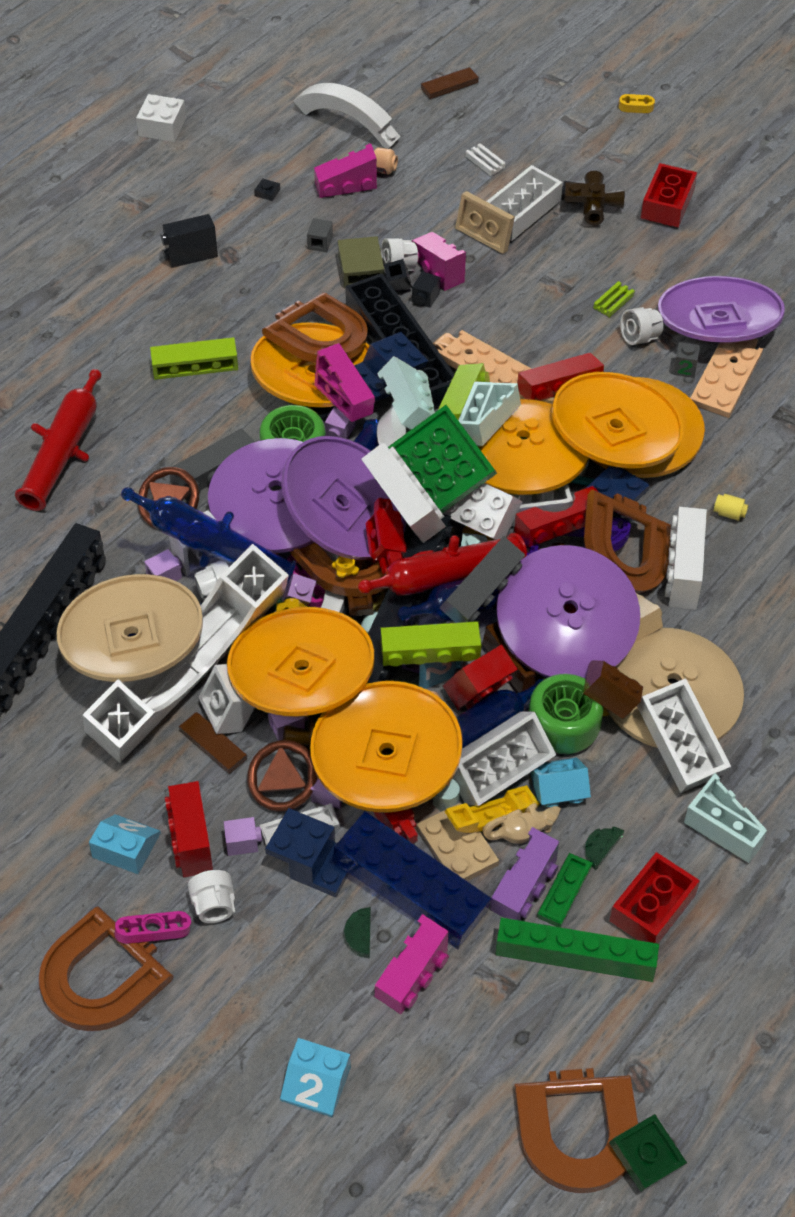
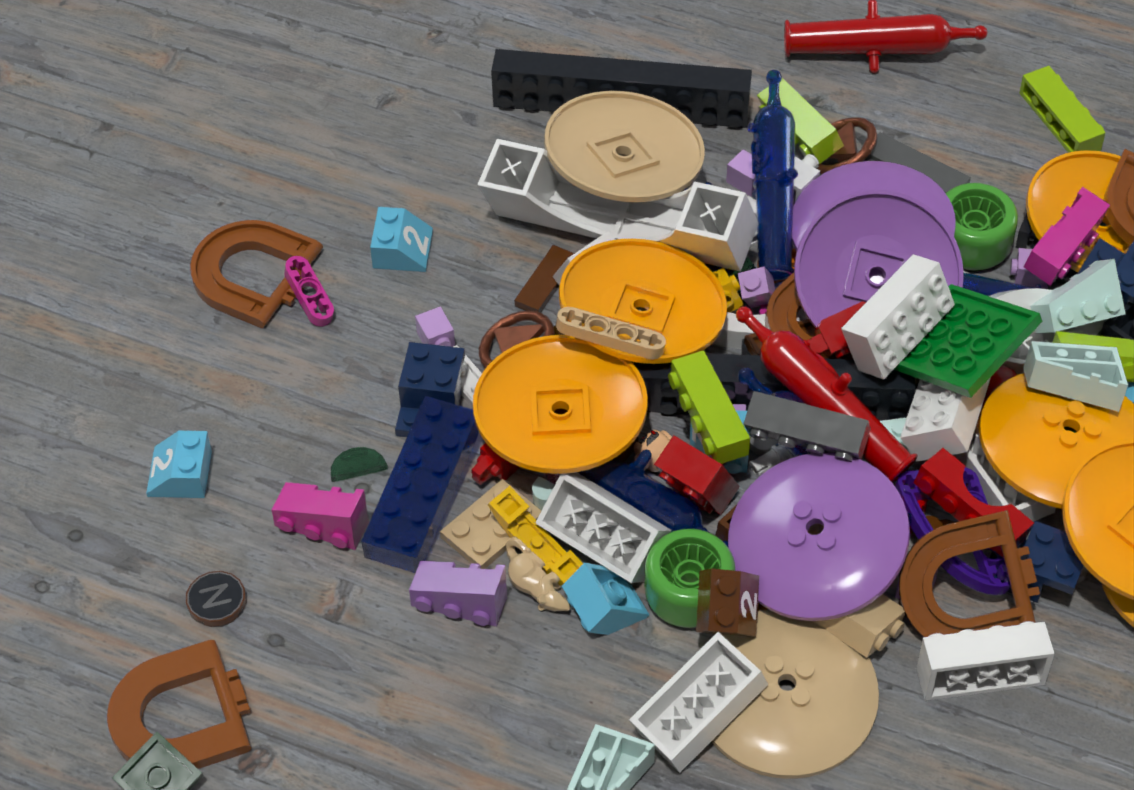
camera: 75 degrees right, 0 degrees up
(122, 516) = (813, 131): none -> lime brick
(188, 829) = (422, 282): red brick -> none
(212, 895) = (352, 324): white piece -> none
(336, 681) = (611, 329): none -> tan beam
(345, 567) = (792, 310): yellow plate -> none
(468, 1075) = (215, 598): none -> black tile
(564, 890) = (466, 639): green tile -> none
(577, 949) = (385, 663): green brick -> none
(601, 844) = (536, 662): clear green tile -> none
(654, 900) = (467, 722): red brick -> none
(730, 507) = (1105, 702): light yellow brick -> none

